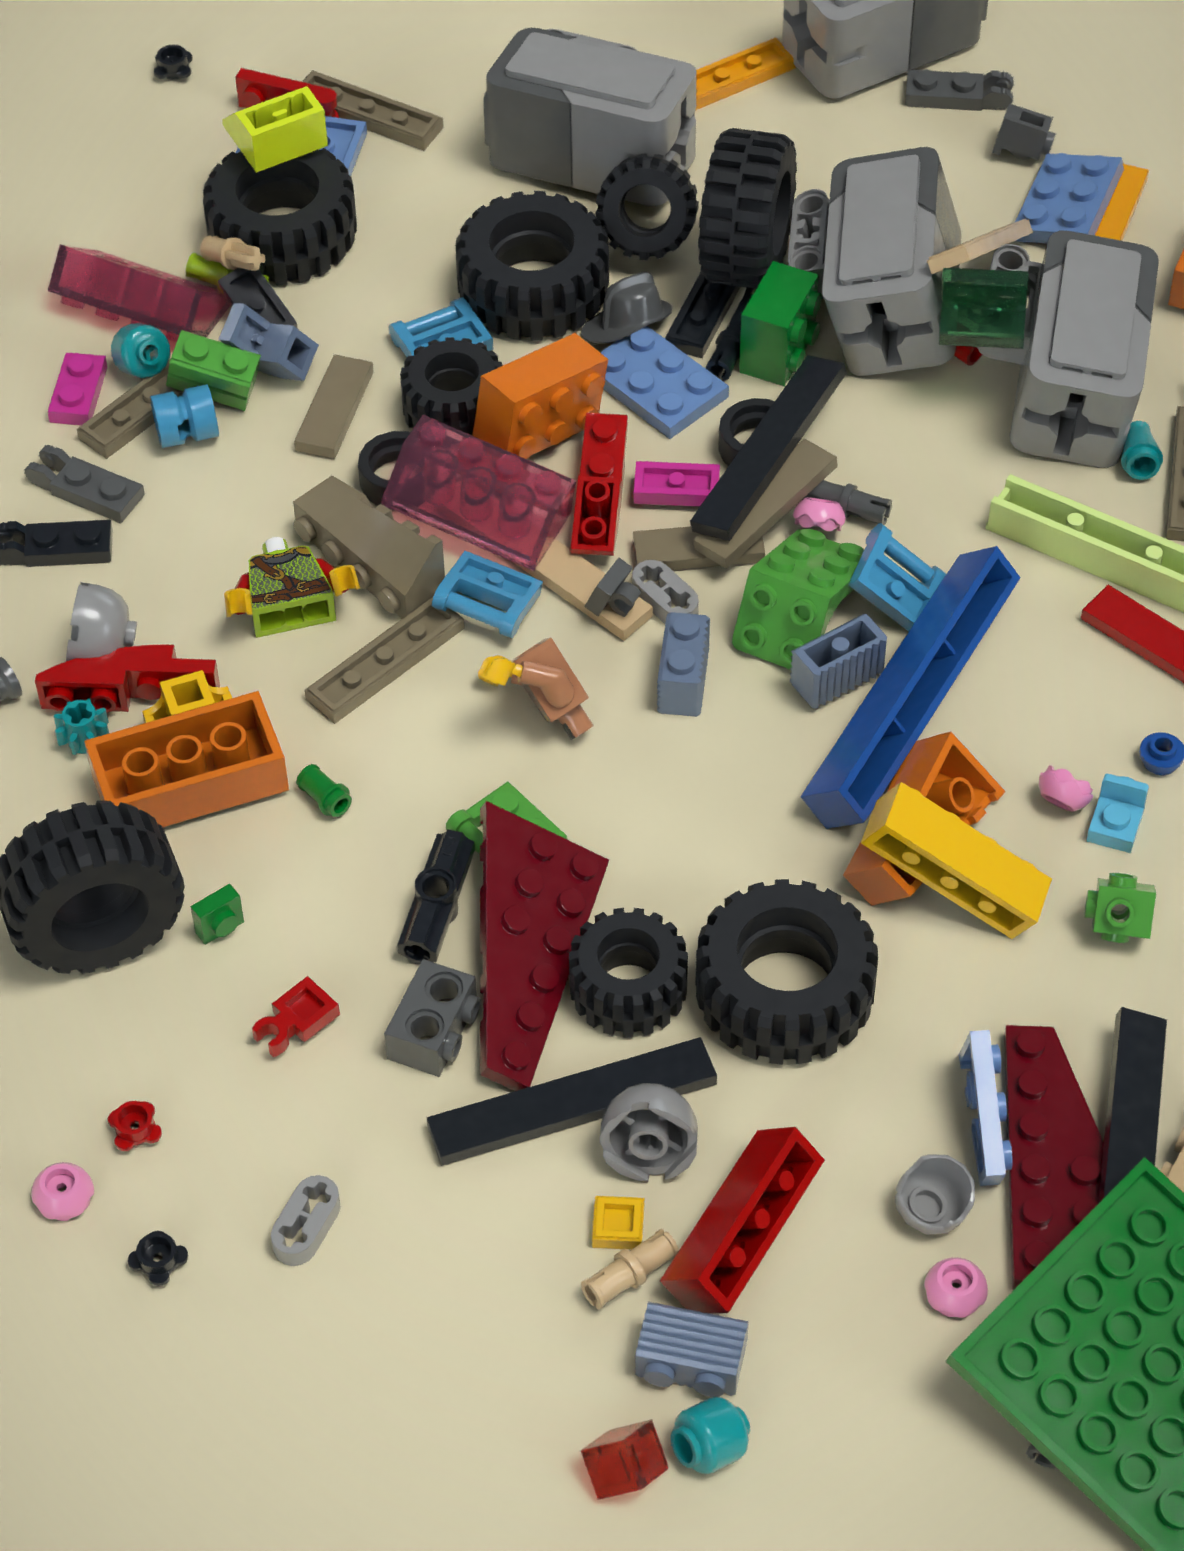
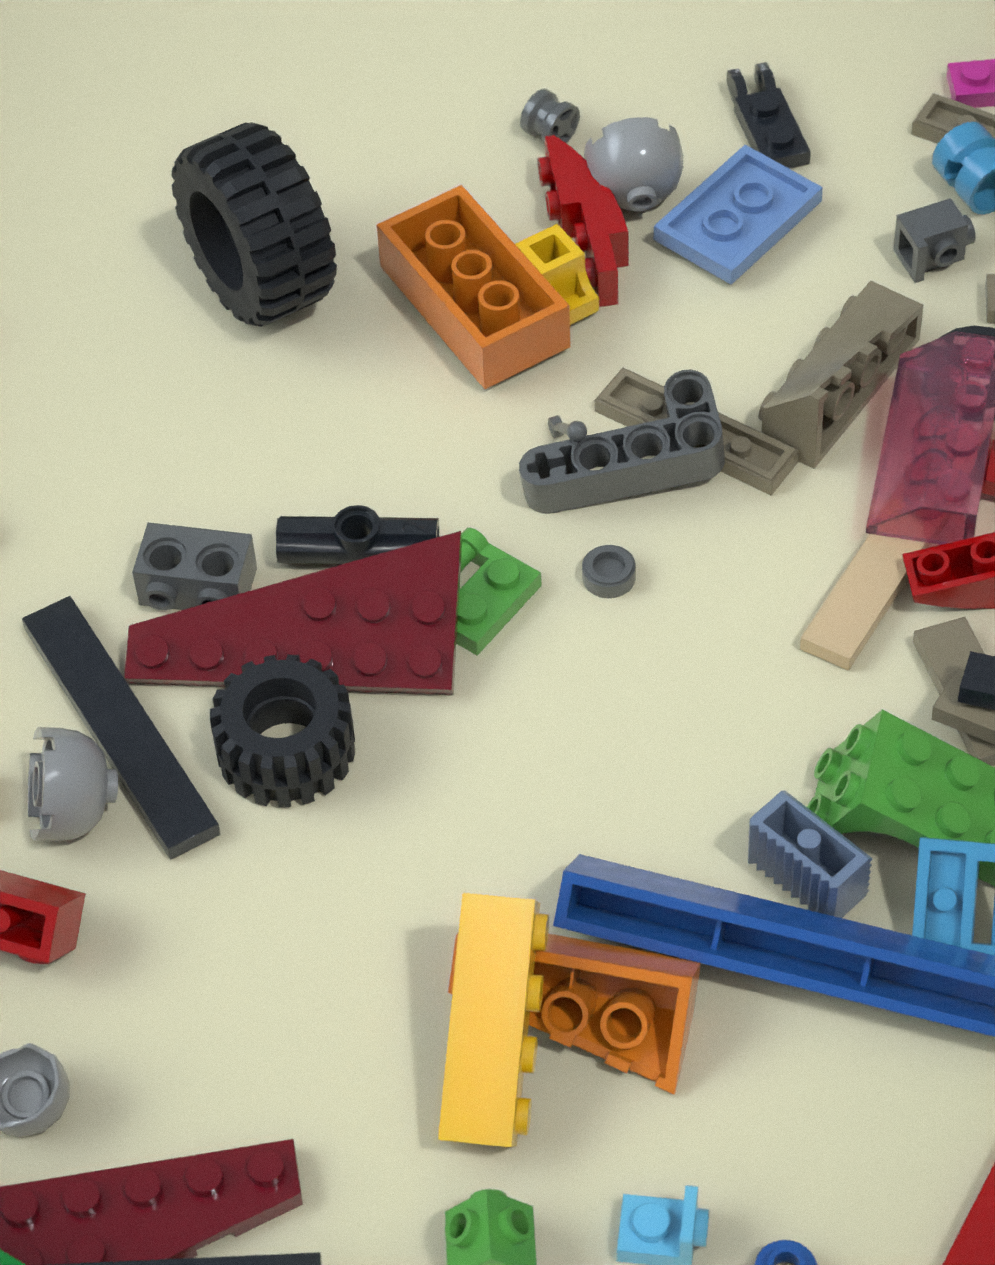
camera: 80 degrees right, 0 degrees up
(79, 723) = (513, 197): teal gear -> none
(85, 484) = (858, 125): dark grey hinge -> none
(130, 1114) = (28, 365): red plate -> none
(162, 580) = (737, 214): none -> medium blue plate
(217, 914) = (293, 363): green plate -> none
(247, 464) = (932, 237): none -> dark grey brick
(288, 589) = (750, 311): torso -> none
(300, 1012) = (182, 463): red plate -> none
(332, 797) = (476, 423): green pin -> none
(348, 748) = (576, 430): none -> dark grey hinge
(423, 701) = (560, 476): none -> dark grey beam
(491, 584) = (826, 494): dark azure plate -> none
(513, 741) = (609, 571): none -> dark grey tile
(546, 680) = (665, 557): nougat torso -> none
(614, 591) = (841, 600): dark grey tile -> none
(670, 589) = (872, 665): light grey beam -> none
(683, 664) = (759, 702): sand blue brick -> none
(779, 1021) = (321, 941): black tyre -> none
(991, 1152) = (156, 1118): wing -> none
(1063, 790) = (680, 1153): bright pink plate -> none

